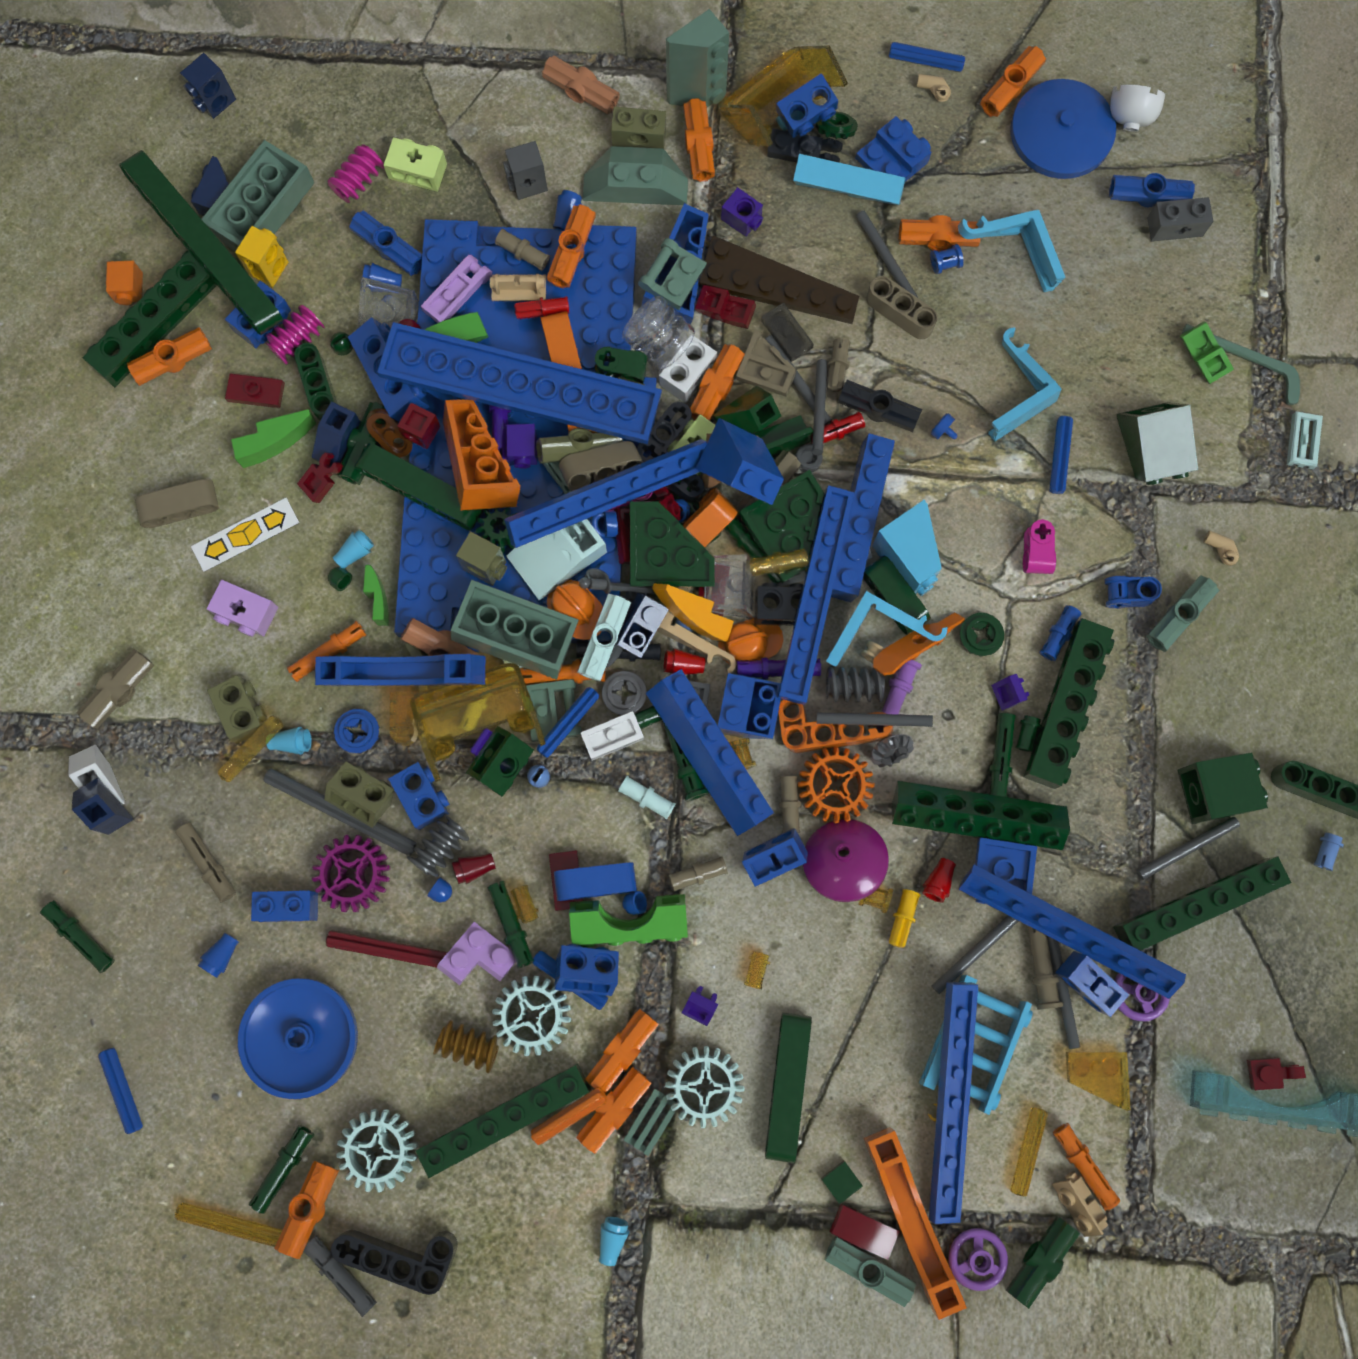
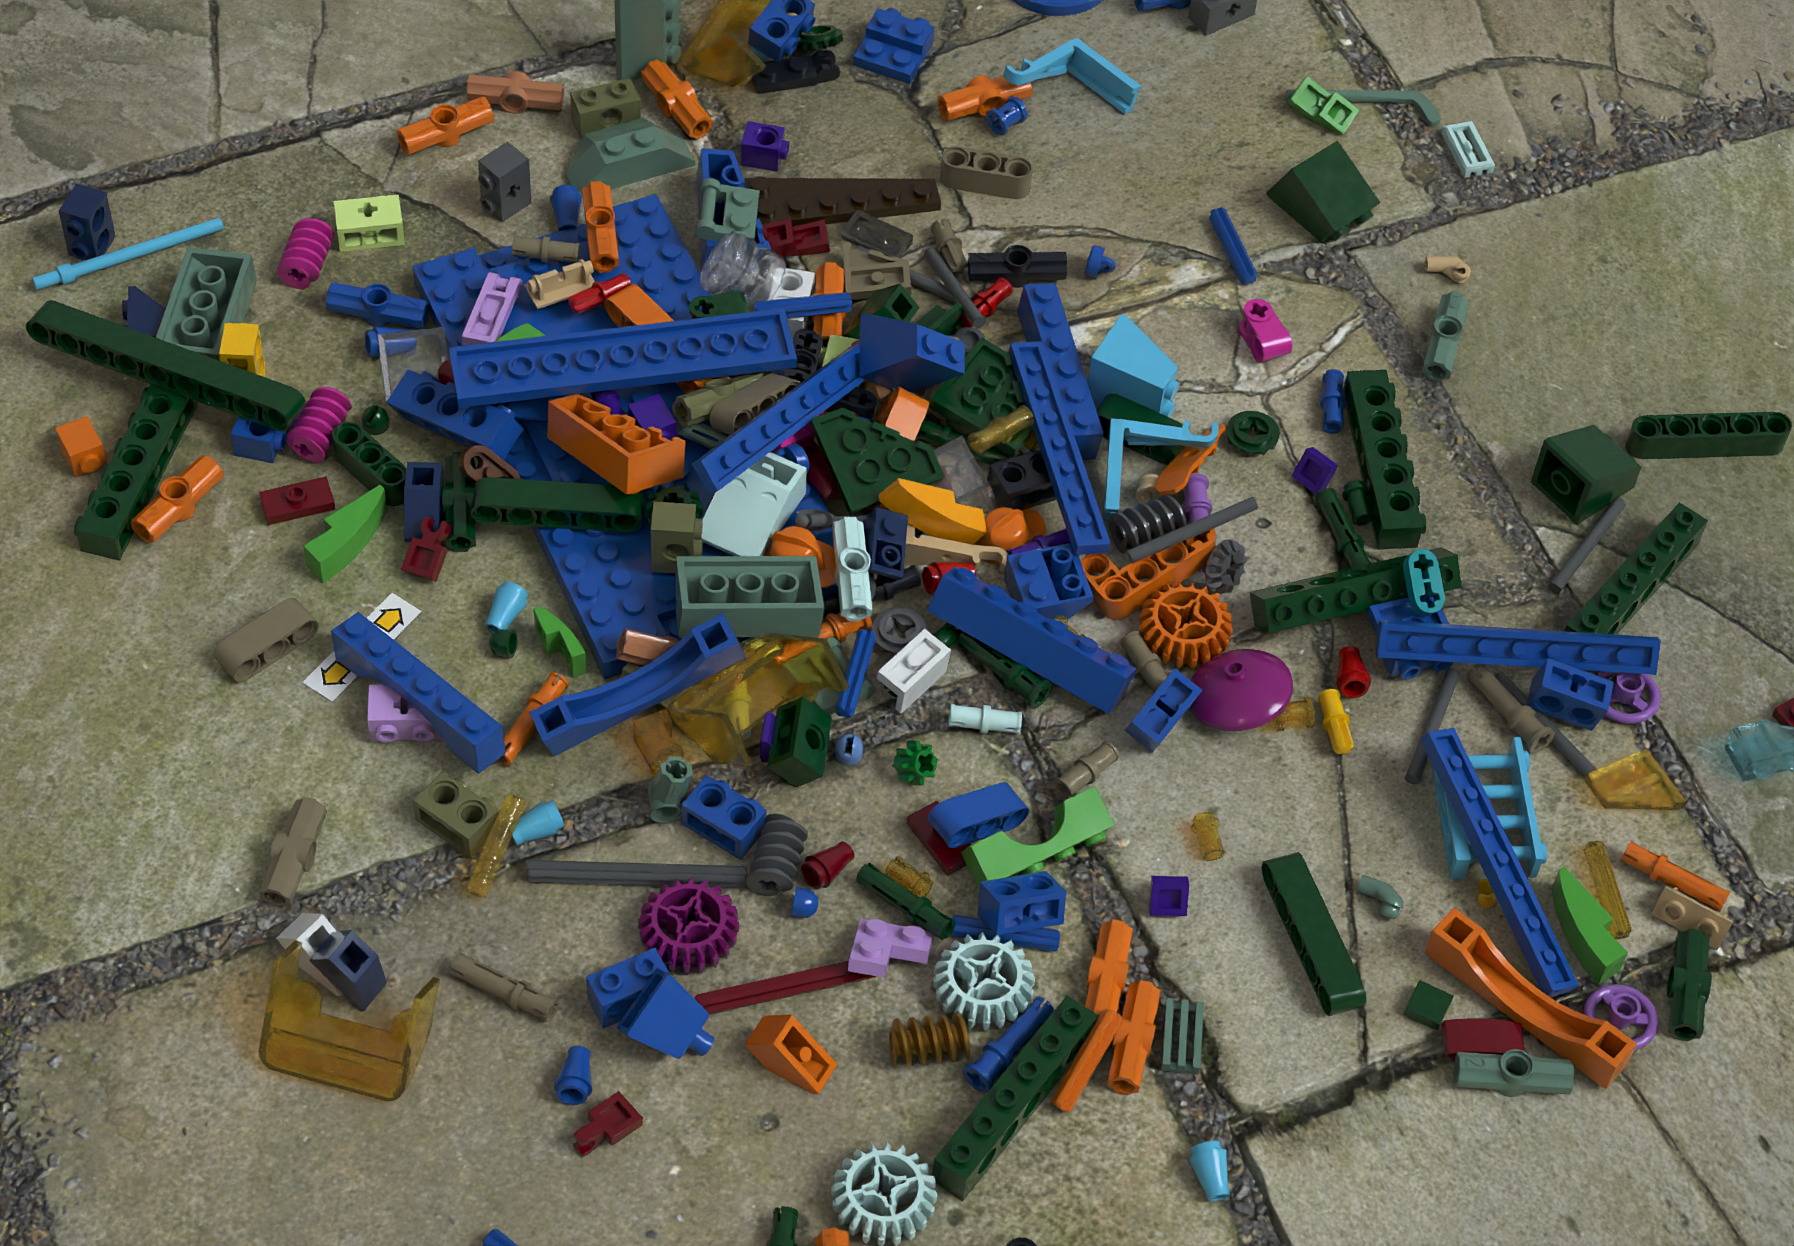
camera: 30 degrees left, 25 degrees down
(72, 854) = (336, 1050): none -> clear yellow windscreen
(73, 932) = (342, 1115): dark green pin -> none
(185, 121) = (67, 273): none -> medium azure bar
(224, 1003) = (609, 1120): none -> dark red plate
(258, 626) = (460, 722): none -> blue arch
(292, 949) = (667, 1018): none -> blue torso
(297, 1038) = (723, 1112): blue dish -> none
(352, 719) = (626, 782): blue gear -> none
(355, 799) = (653, 838): olive brick -> none
(369, 1009) = (791, 1052): none -> orange slope
(386, 761) = (668, 790): none -> sand green piece
(419, 426) = (527, 443): dark red brick -> none
(497, 96) = (445, 125): none -> orange piece
(512, 1077) = (999, 1054): none -> blue pin
(575, 814) = (915, 762): none -> green gear
(635, 903) = (1032, 826): blue hinge -> none
(689, 382) = (808, 305): none -> blue axle
(703, 1112) = (1226, 958): light aqua gear -> none
(848, 179) = (859, 79): medium azure slope -> none
(861, 1078) = (1384, 892): none -> sand green arm
(884, 252) = (924, 127): dark grey bar -> none
(992, 1179) = (1586, 928): none -> bright green slope
(1035, 845) = (1431, 580): none -> teal beam
(1043, 383) = (1175, 188): medium azure hinge -> none
(1126, 592) = (1383, 335): blue piece -> none
(1328, 851) = (1725, 483): medium blue pin -> none

